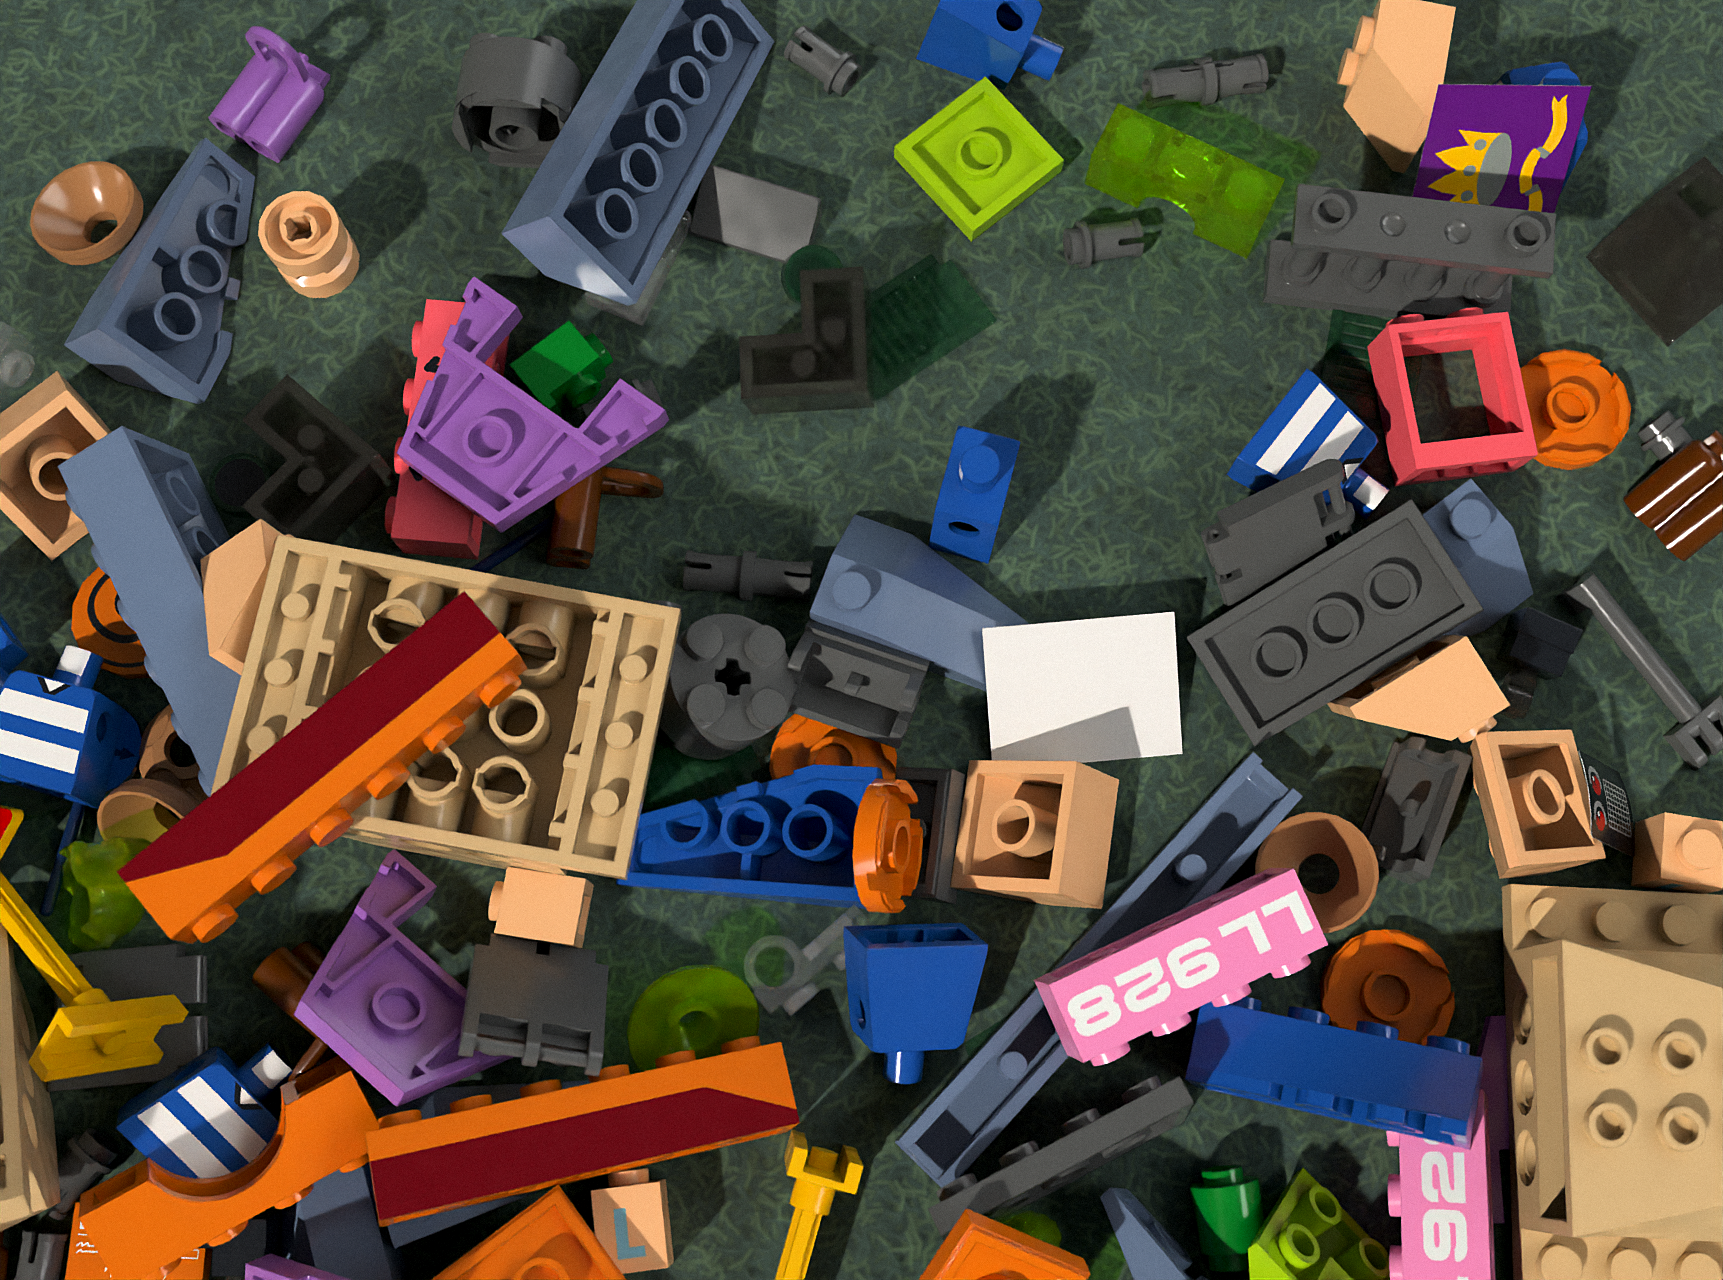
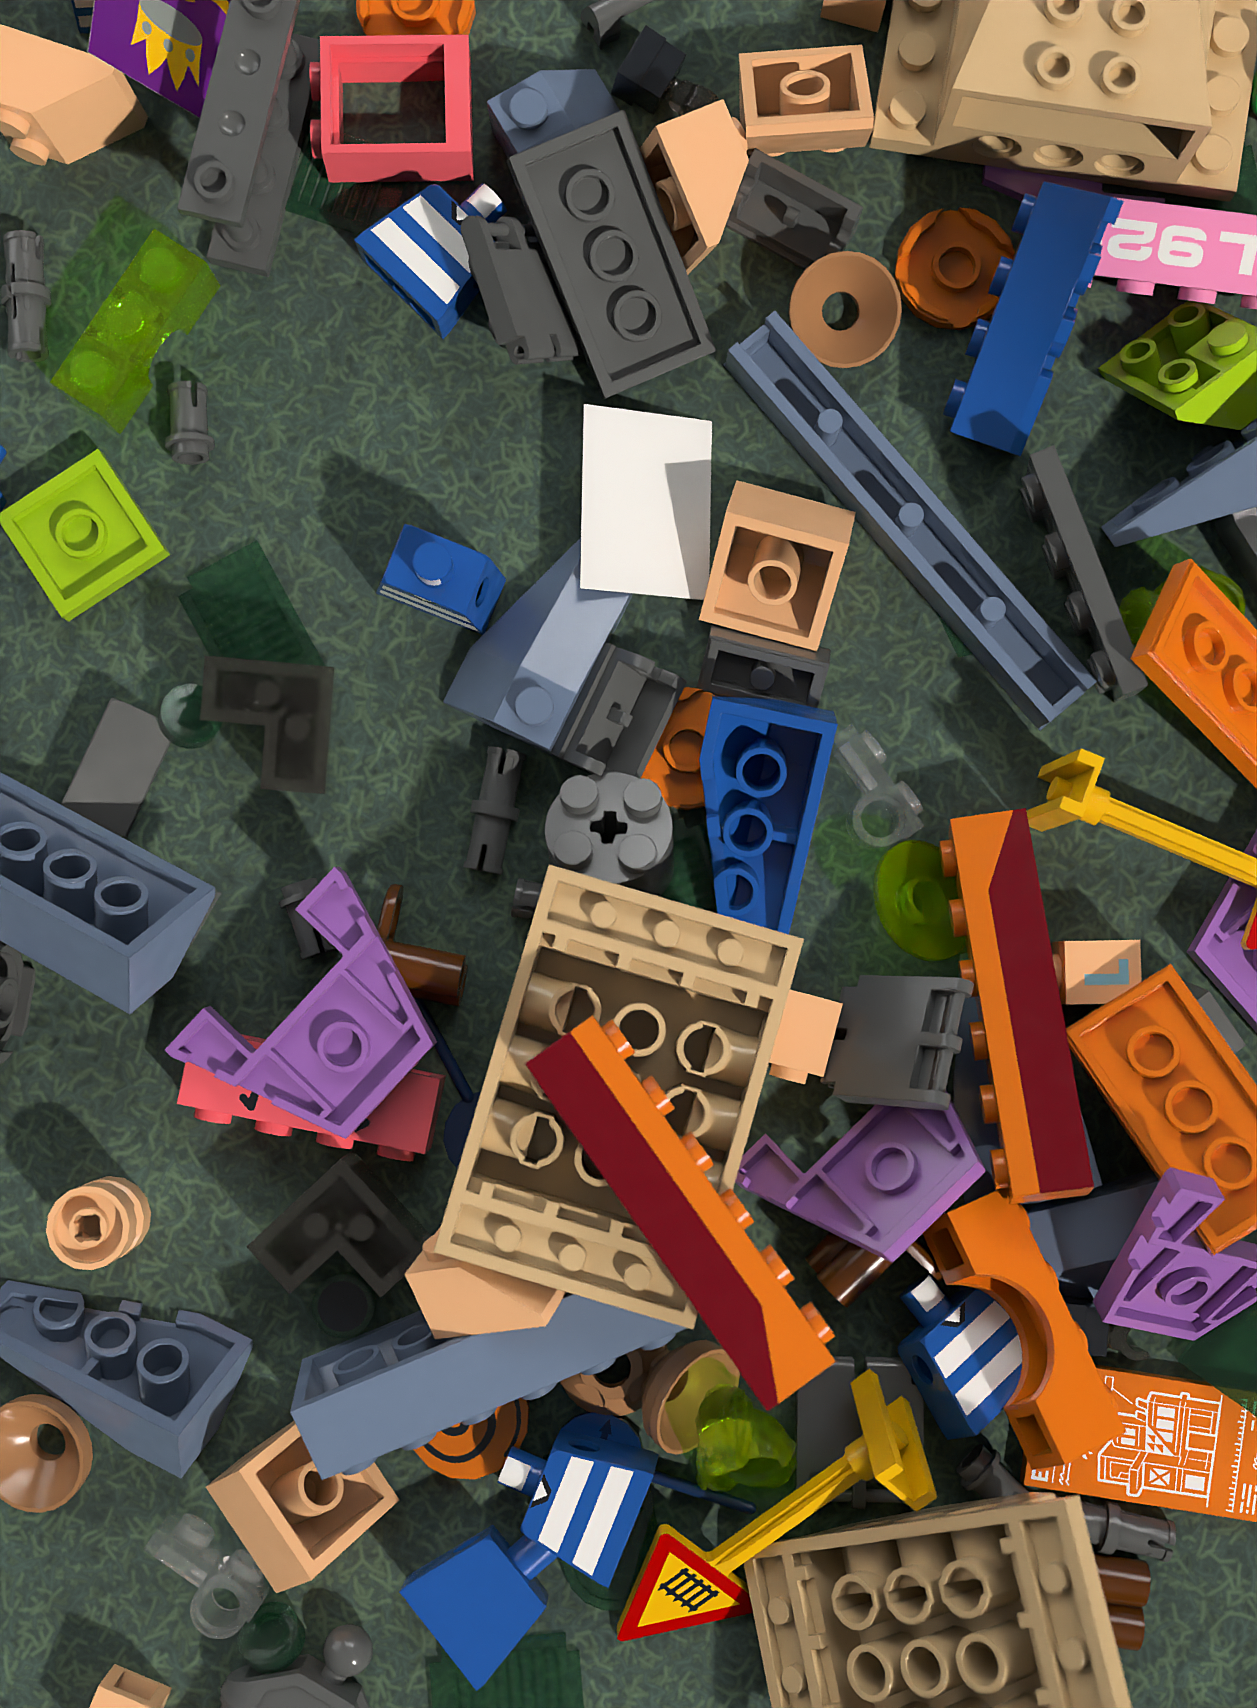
camera: 80 degrees left, 10 degrees up
(563, 369) = (264, 973): green brick -> none
(886, 846) = (785, 698): orange tile -> none
(911, 990) = (913, 693): blue torso -> none
(1181, 964) = (923, 441): bright pink brick -> none
(1226, 1216) = (1138, 438): green brick -> none
(1609, 806) = (809, 33): black sticker -> none

